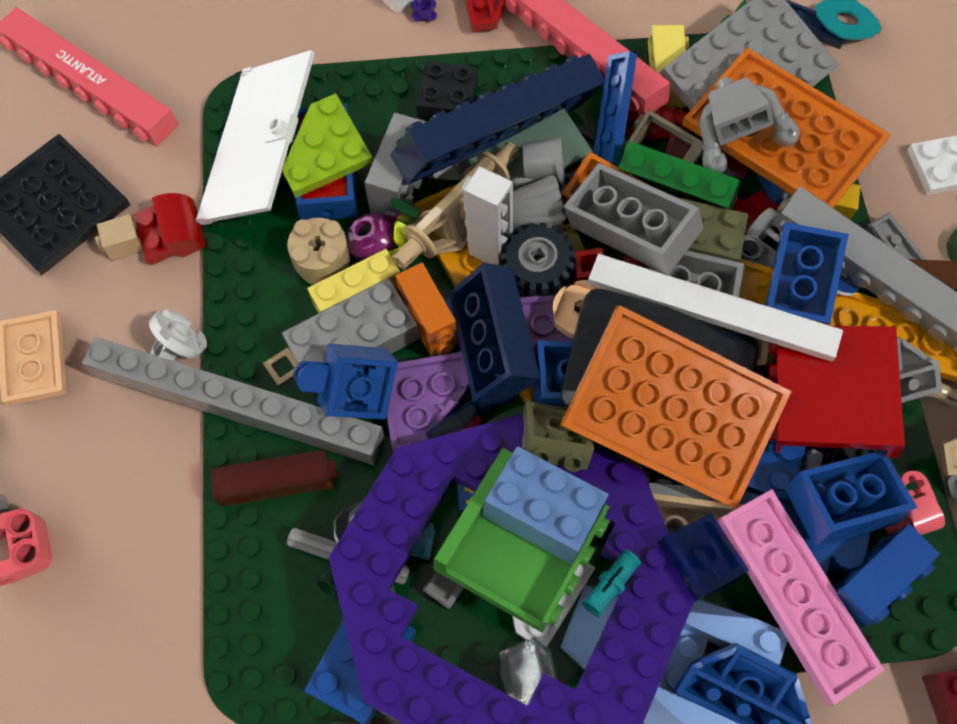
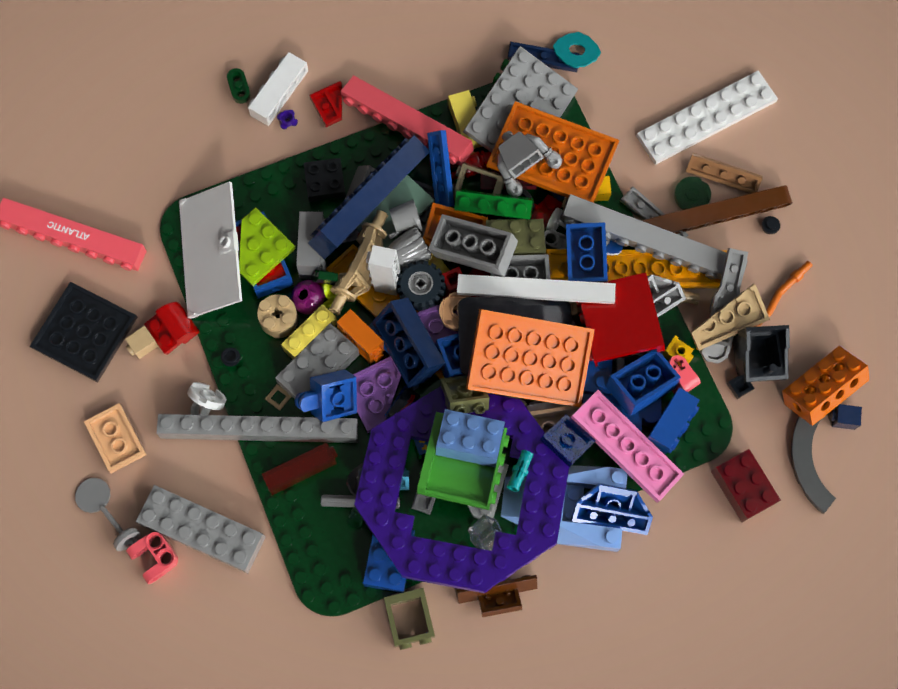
camera: 20 degrees left, 5 degrees up
(97, 527) = (201, 529): none -> light grey brick
(233, 289) = (230, 357): none -> black plate
(913, 460) = (674, 346): none -> yellow brick

